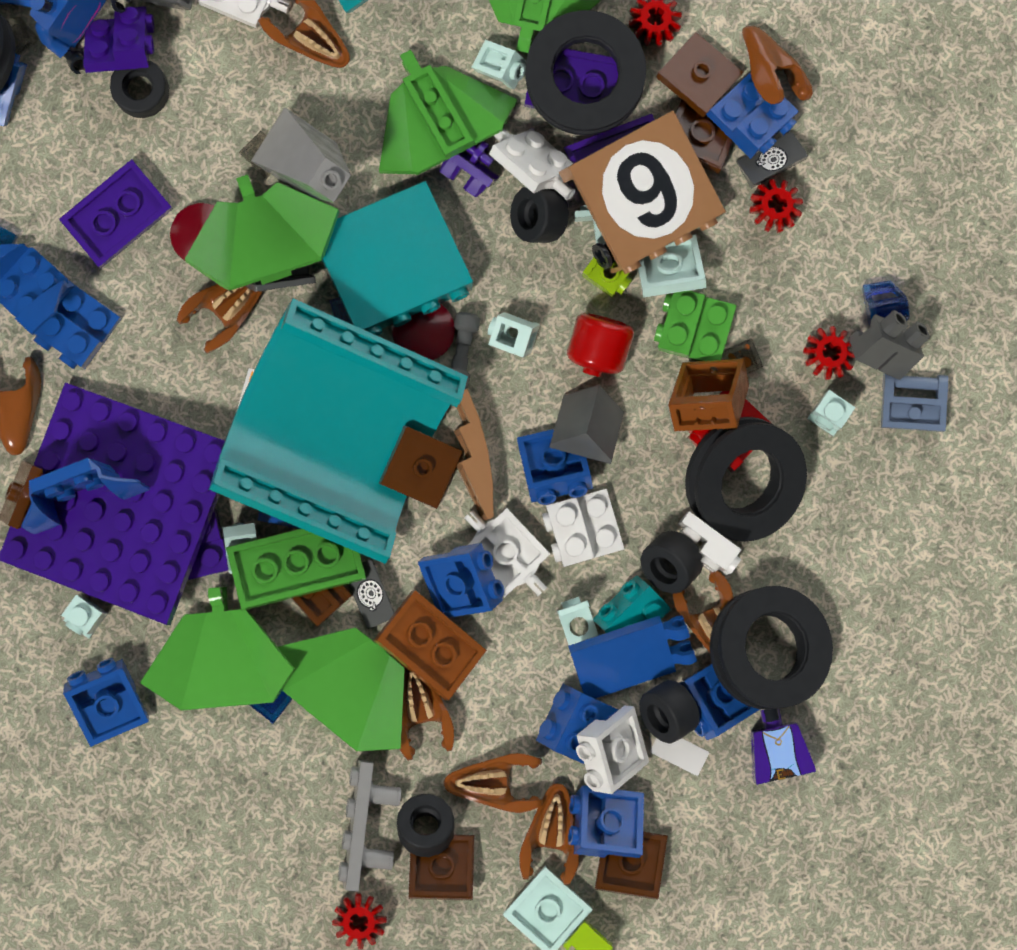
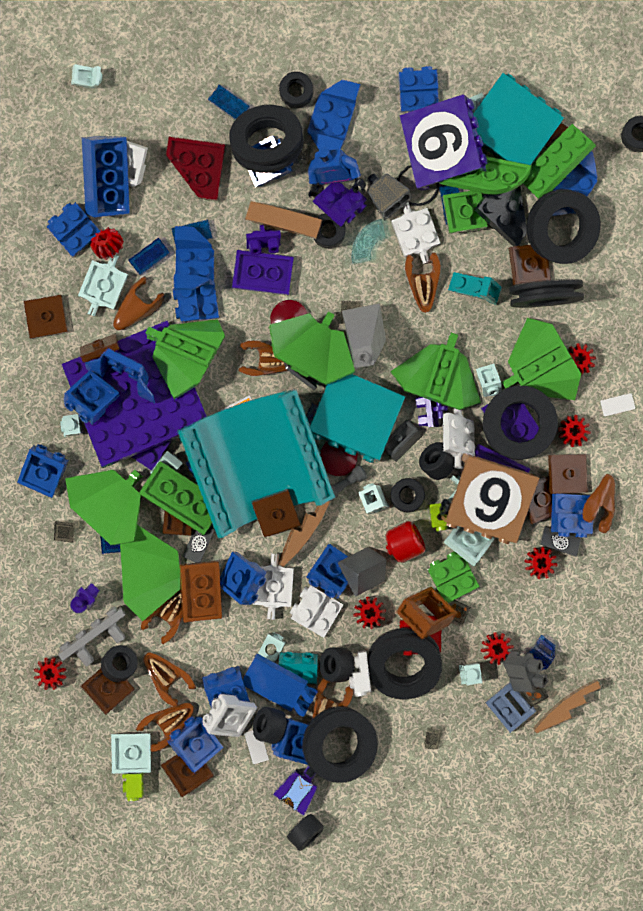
camera: 45 degrees right, 0 degrees up
(69, 560) = (90, 397): none -> blue plate
(75, 129) = (283, 219): none -> medium nougat slope
(76, 175) = (263, 239): none -> dark purple hips
(124, 395) = (185, 352): none -> bright green panel
(194, 55) = (366, 240): none -> clear light blue tile
(203, 744) = (64, 531): none -> clear smoke slope
(308, 795) = (84, 599): none -> dark purple hips
(475, 235) = (402, 440): none -> dark grey slope
(553, 270) = (419, 495): none -> black tyre
(655, 469) = (372, 618): none -> red gear
(837, 787) = (305, 832): none -> black tyre
(866, 531) = (432, 738): none -> clear smoke slope
(932, 360) = (536, 697): none -> clear smoke slope
(974, 345) = (560, 712): none -> medium nougat slope

